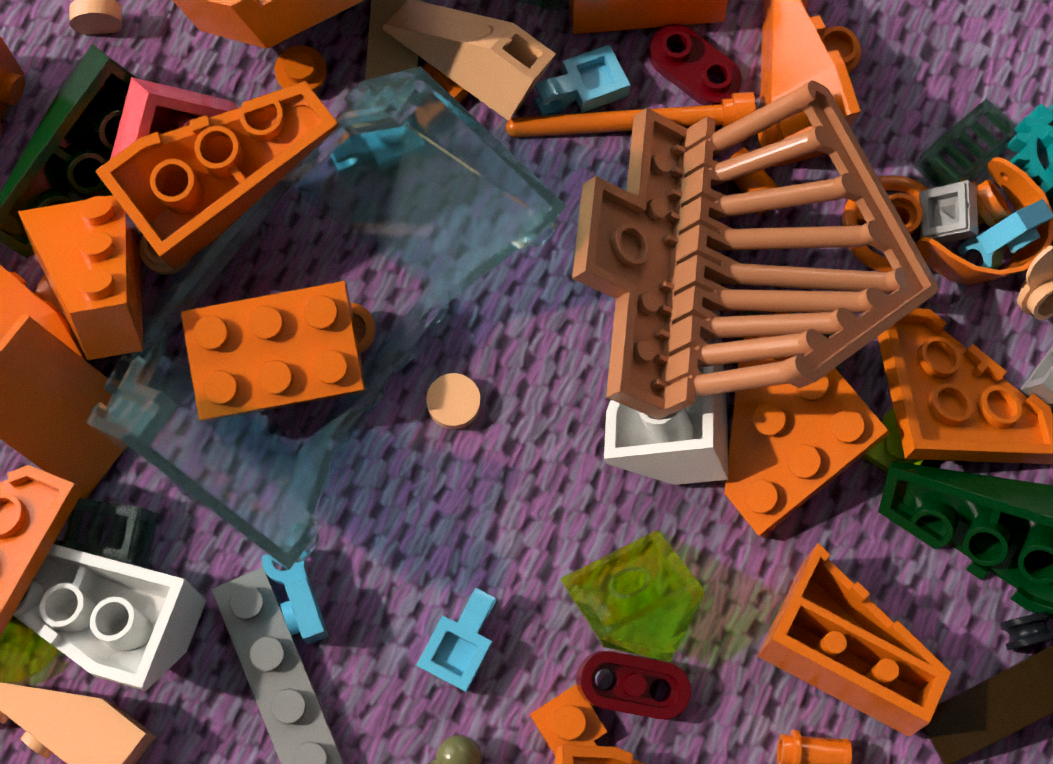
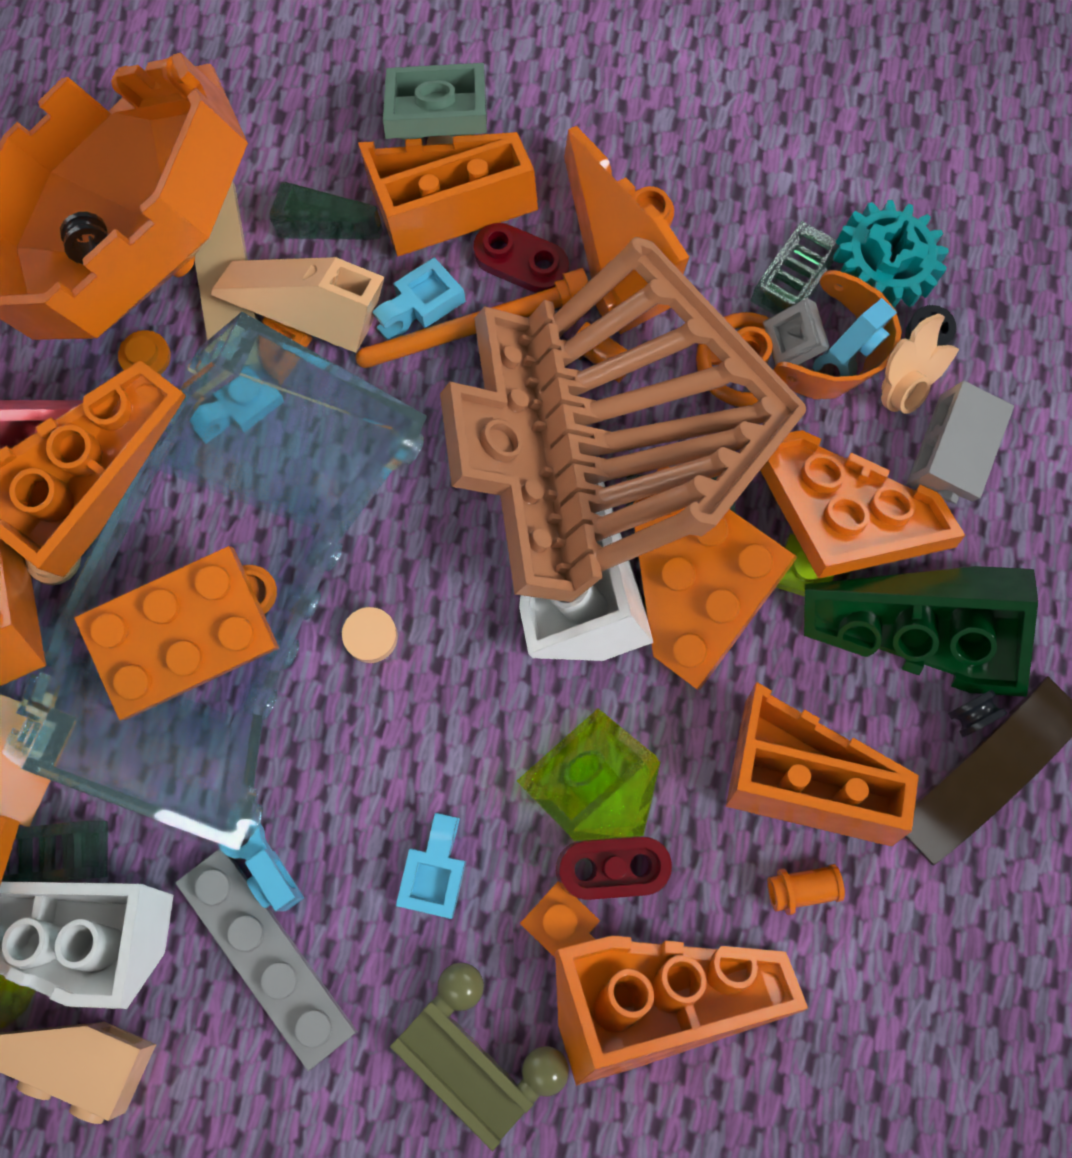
camera: 10 degrees left, 0 degrees up
(990, 204) = (833, 317): orange plate -> none

